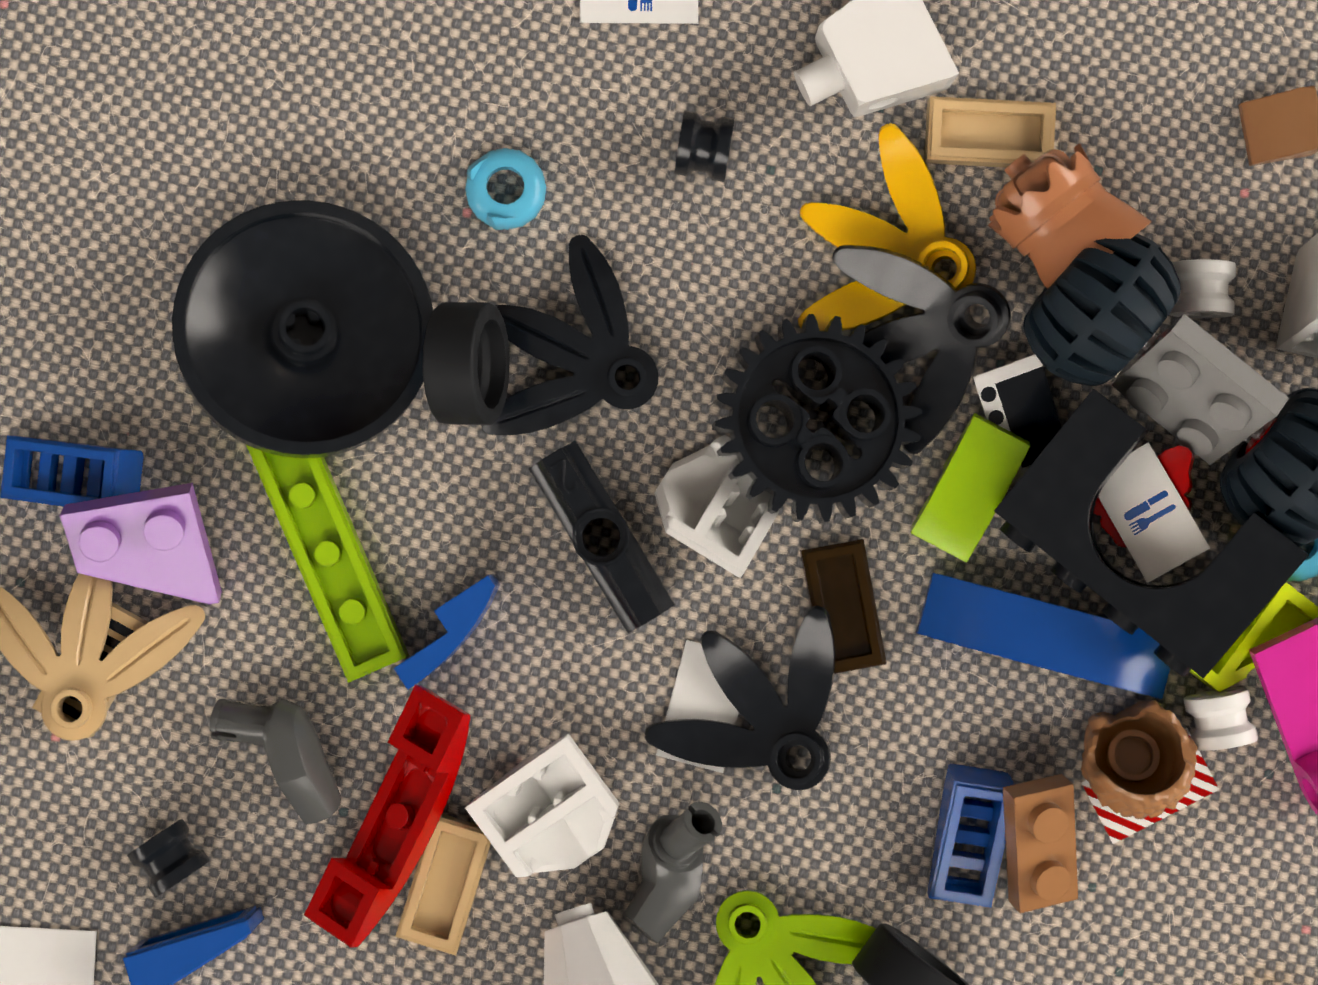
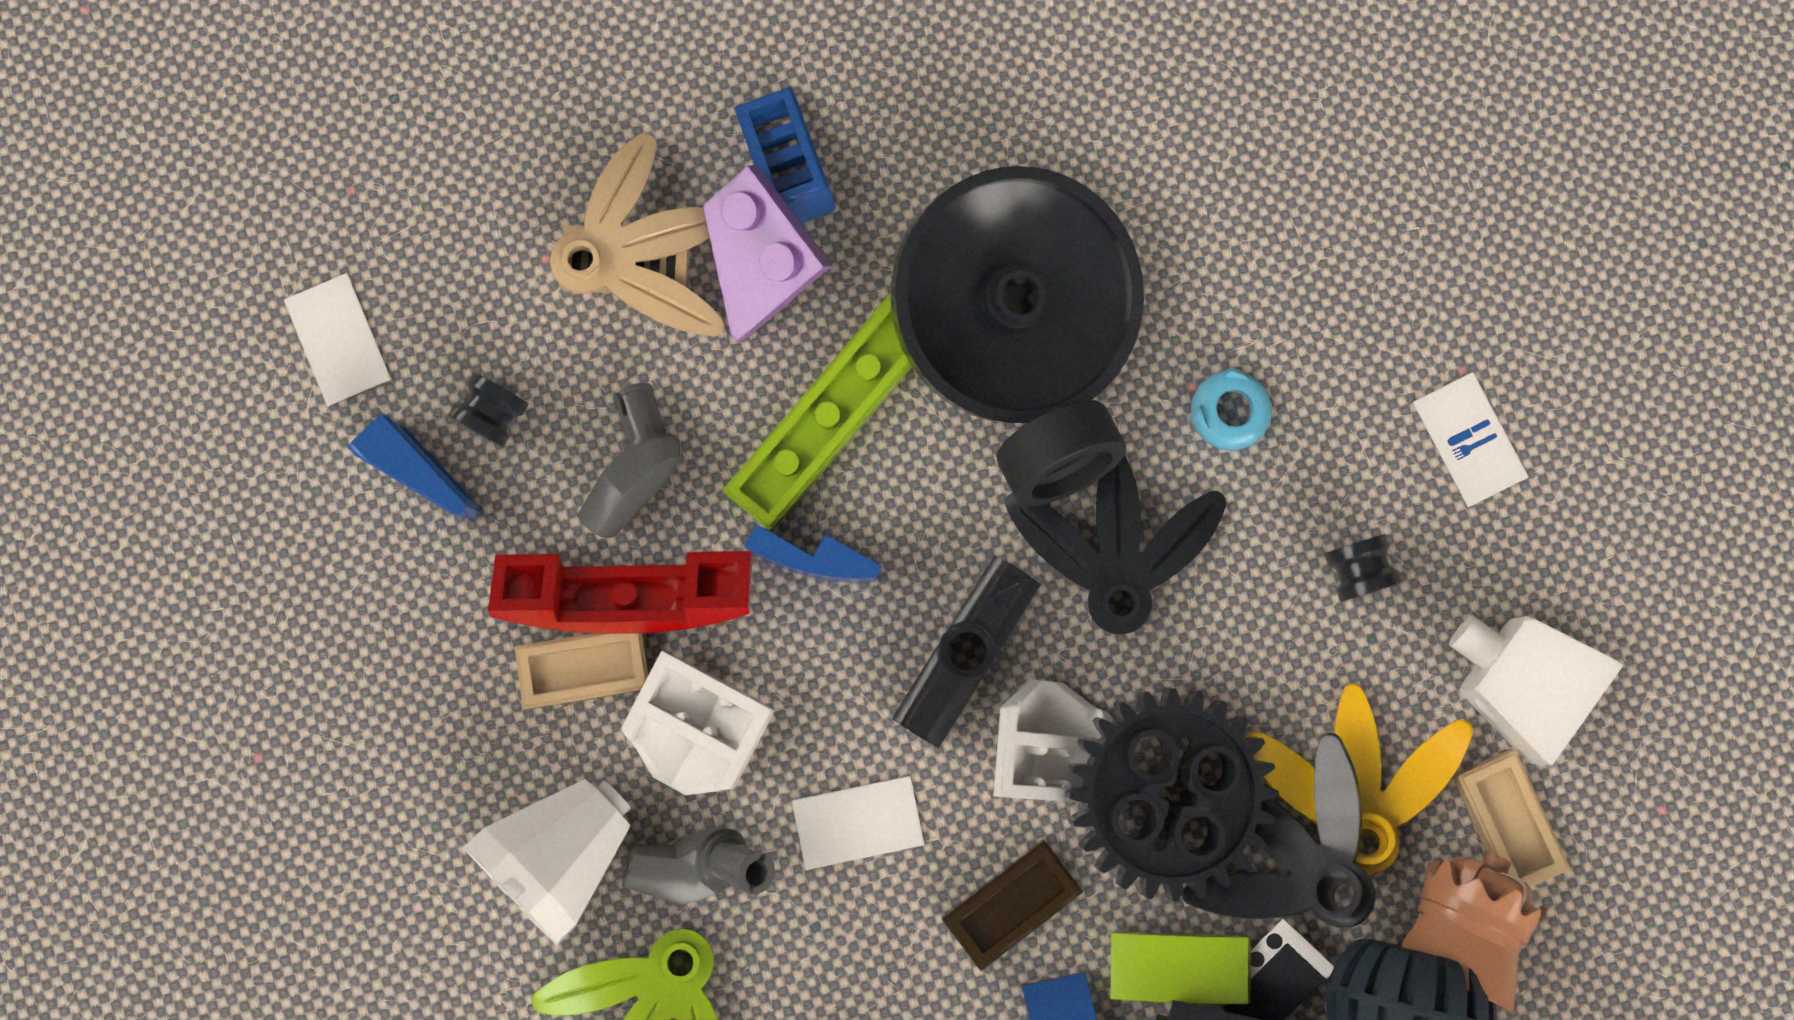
camera: 60 degrees right, 5 degrees down
(756, 699) = (889, 865): black plant -> none

